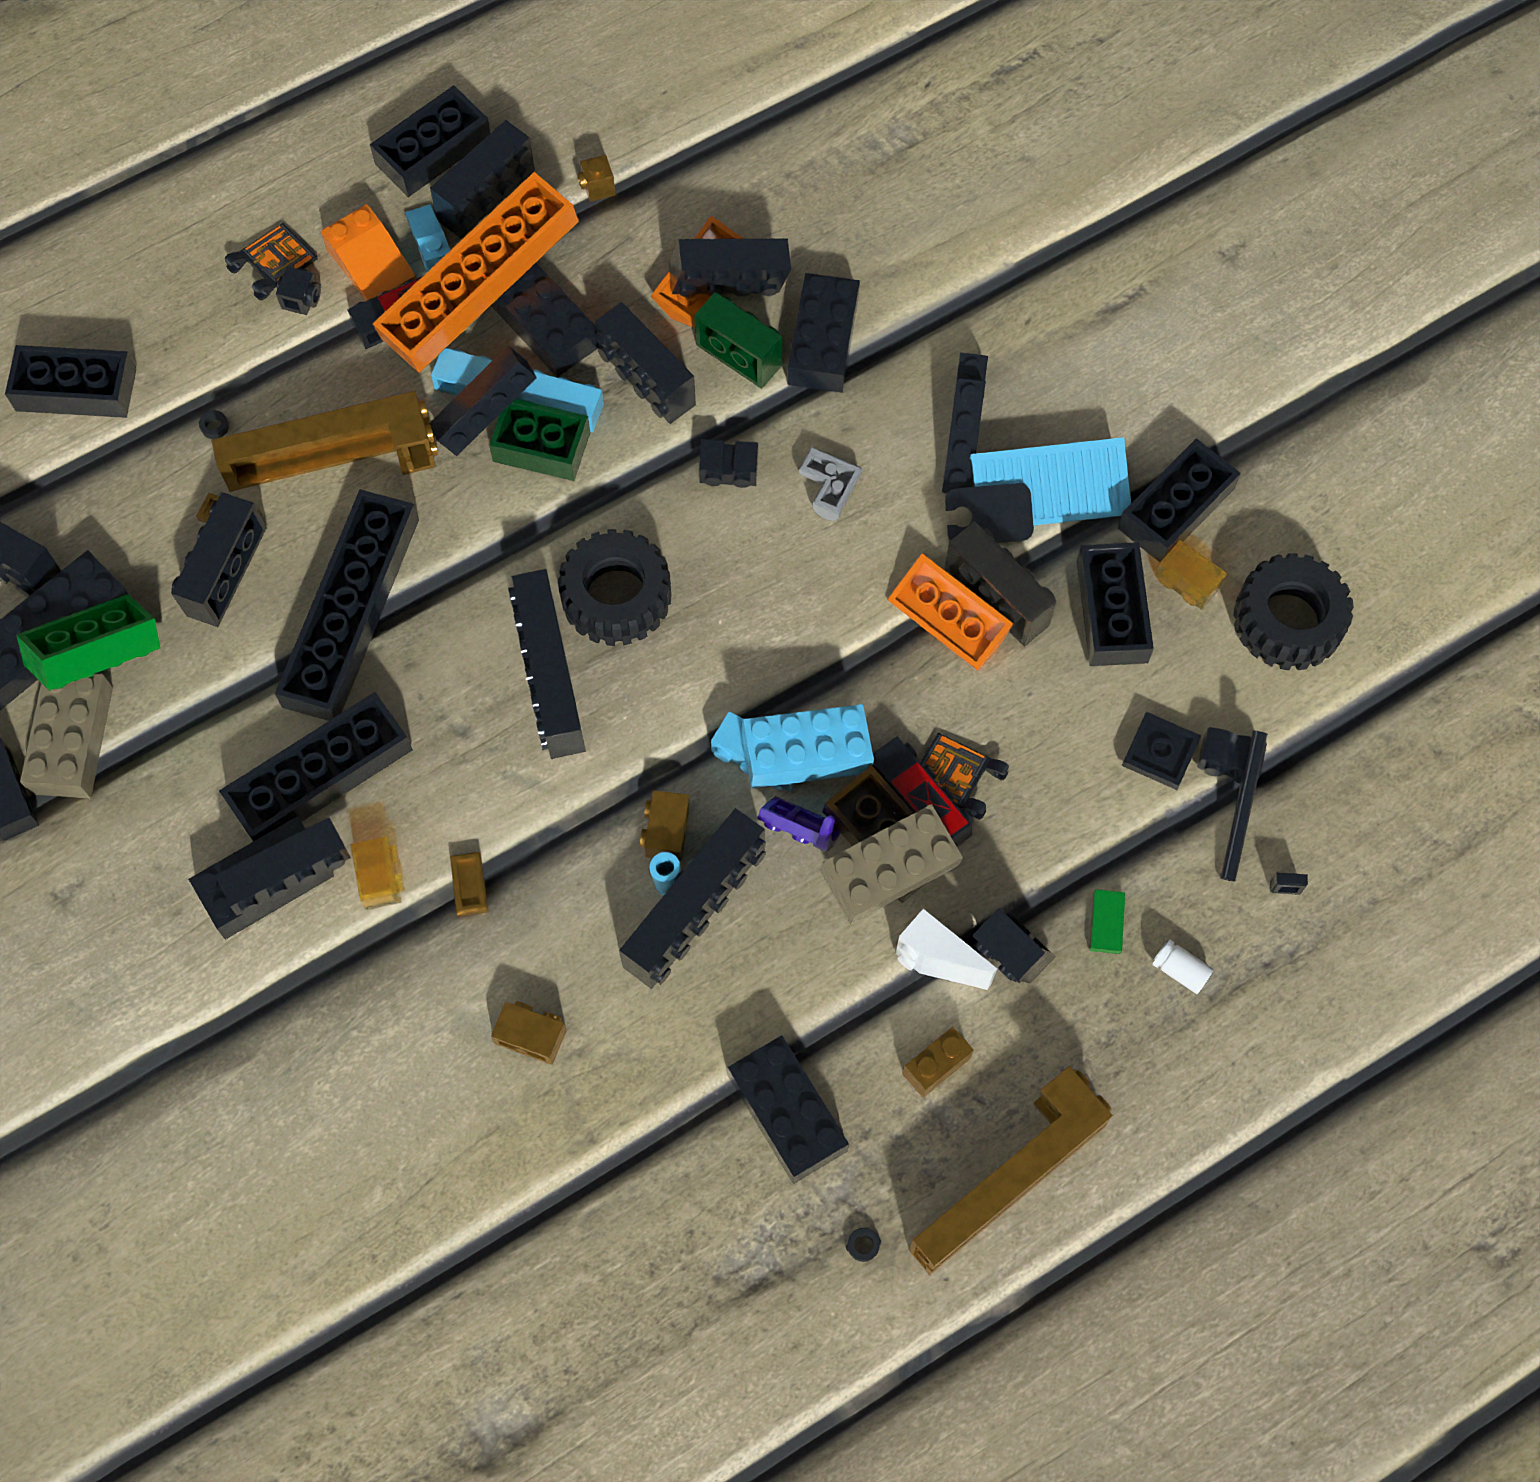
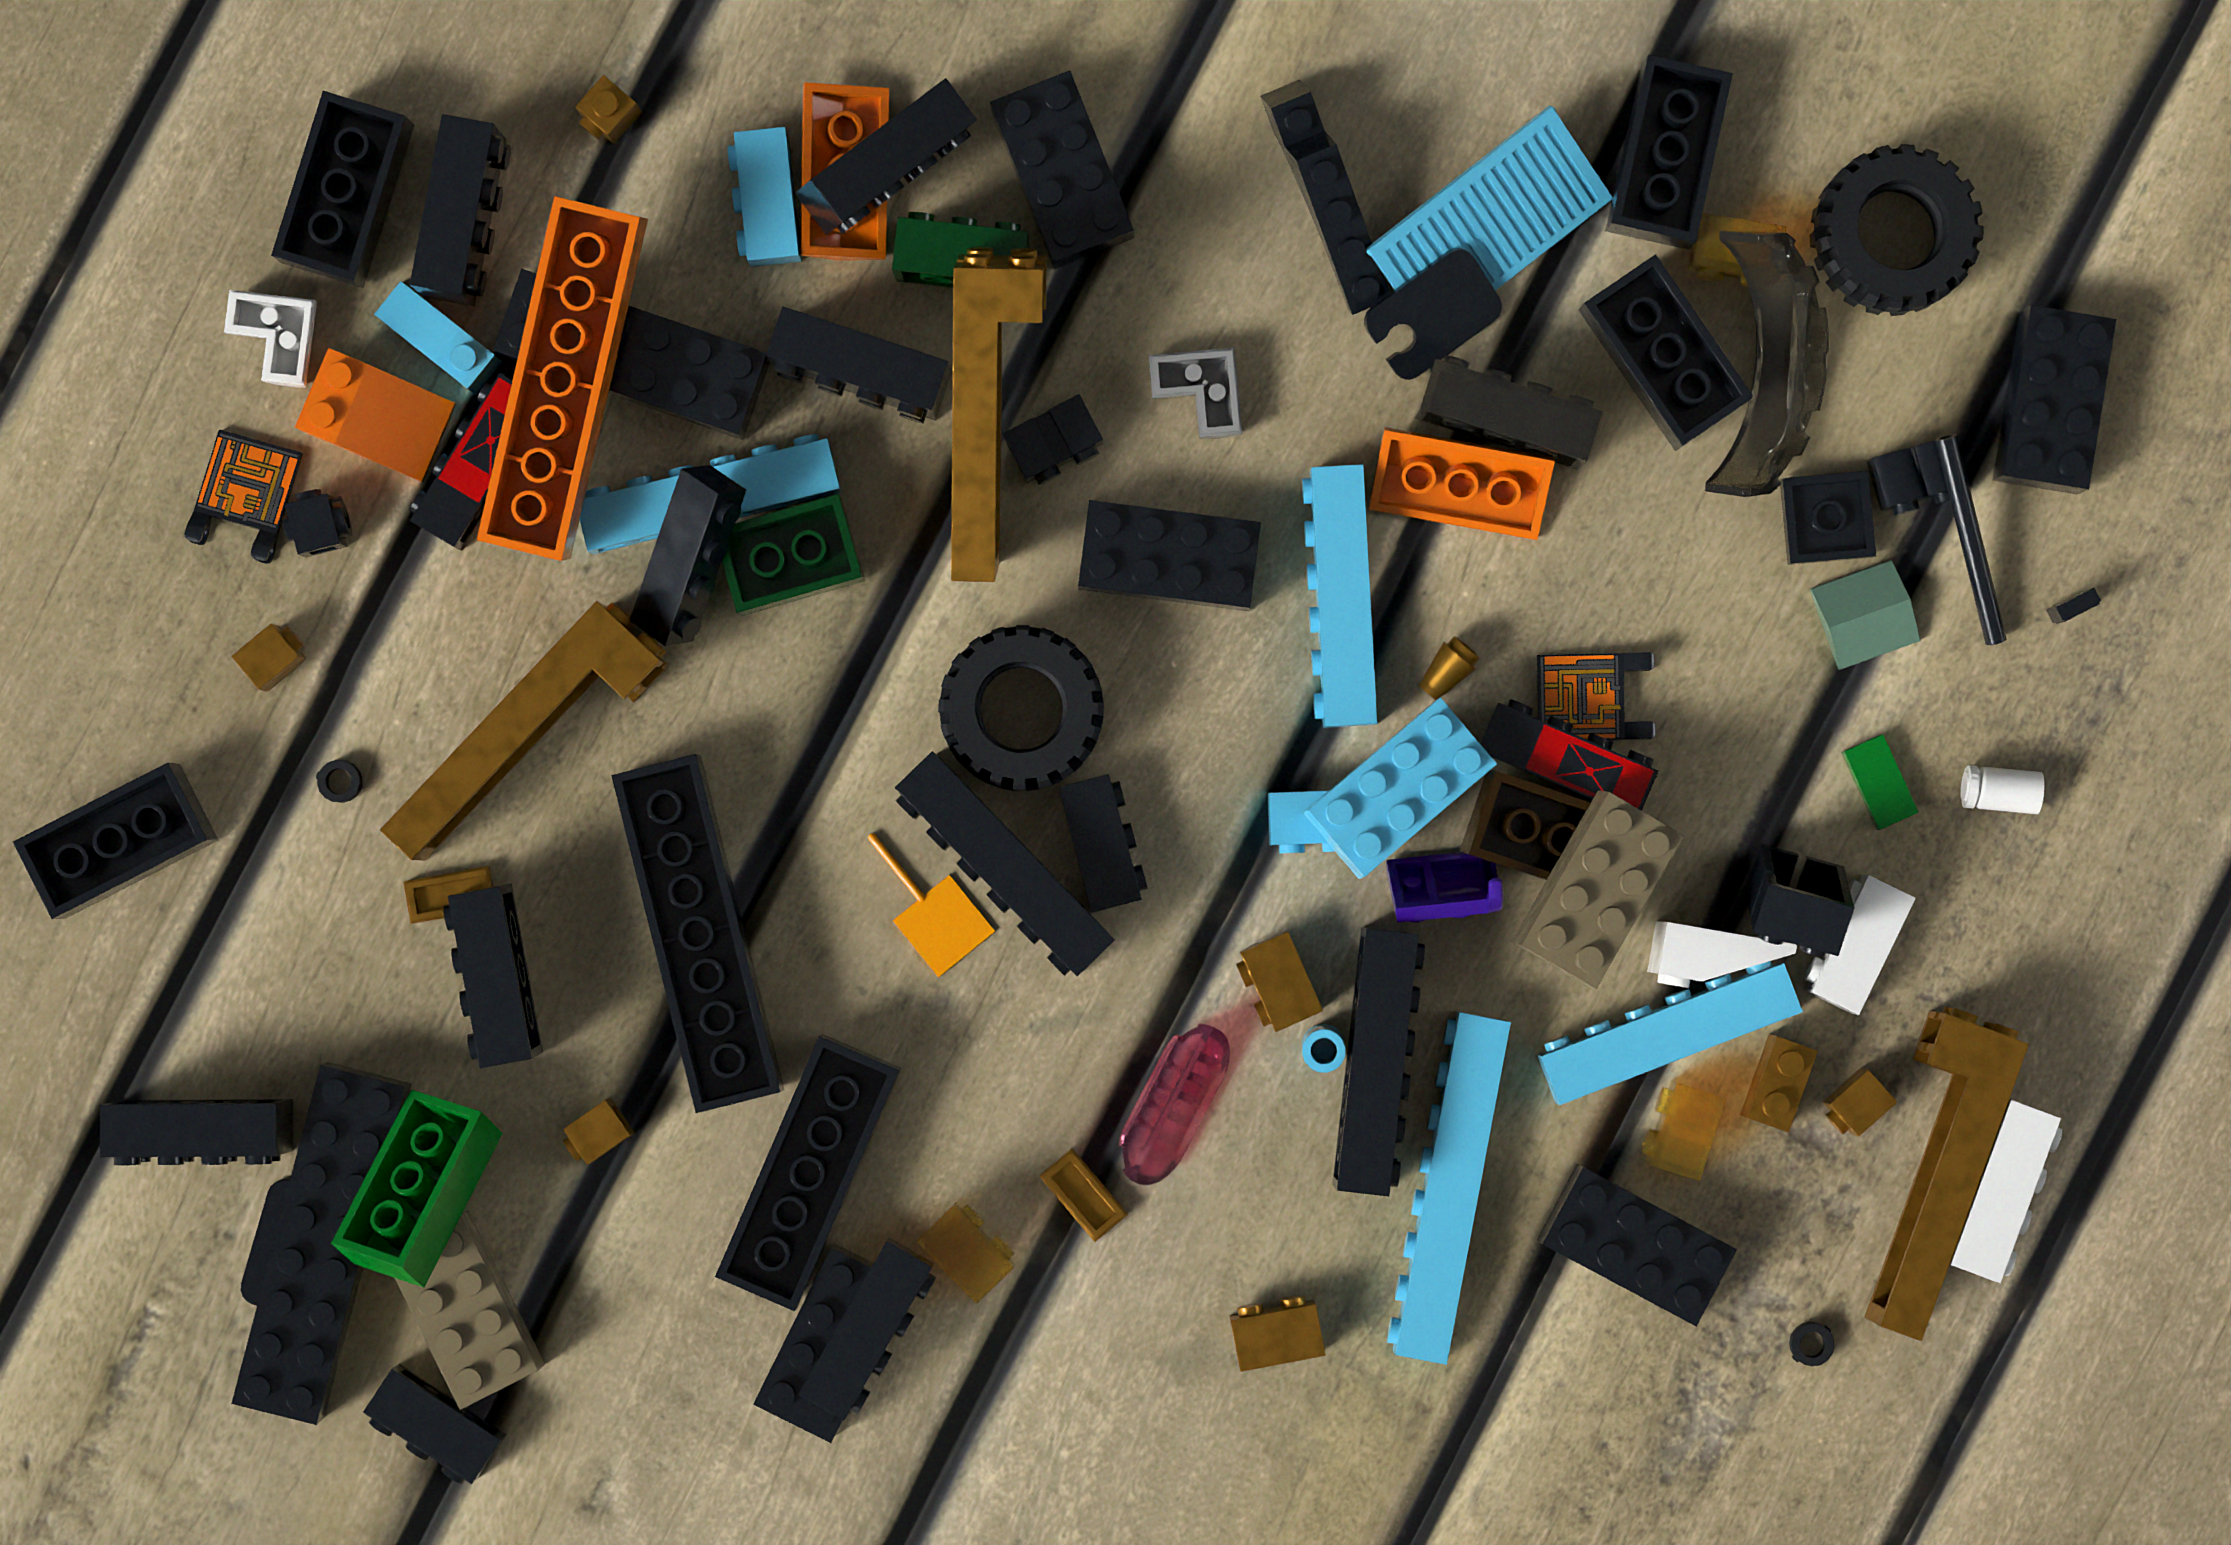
camera: 30 degrees left, 20 degrees up
(214, 682) = (597, 1132): none -> pearl gold brick
(224, 340) = (270, 656): none -> pearl gold brick
(352, 188) = (286, 326): none -> white brick
(491, 685) = (941, 922): none -> light orange piece
(558, 860) = (1173, 1103): none -> clear pink brick
(613, 689) = (1102, 842): none -> black brick
(650, 262) = (765, 197): none -> medium azure brick
(692, 1006) = (1450, 1187): none -> medium azure brick
(728, 349) = (985, 294): none -> pearl gold brick
(754, 556) = (1169, 555): none -> black brick
(841, 634) = (1342, 596): none -> medium azure brick
(860, 1057) = (1683, 1130): none -> clear yellow brick
(882, 707) = (1449, 667): none -> pearl gold cone
(886, 991) = (1669, 1032): none -> medium azure brick
(982, 1105) = (1858, 1103): none -> pearl gold brick
(1038, 1007) = (1868, 940): none -> white brick
(1041, 1206) = (2005, 1191): none -> white brick
(1154, 821) = (1866, 614): none -> sand green slope
(1193, 643) = (1788, 365): none -> clear smoke windscreen
(1339, 758) = (2054, 399): none -> black brick

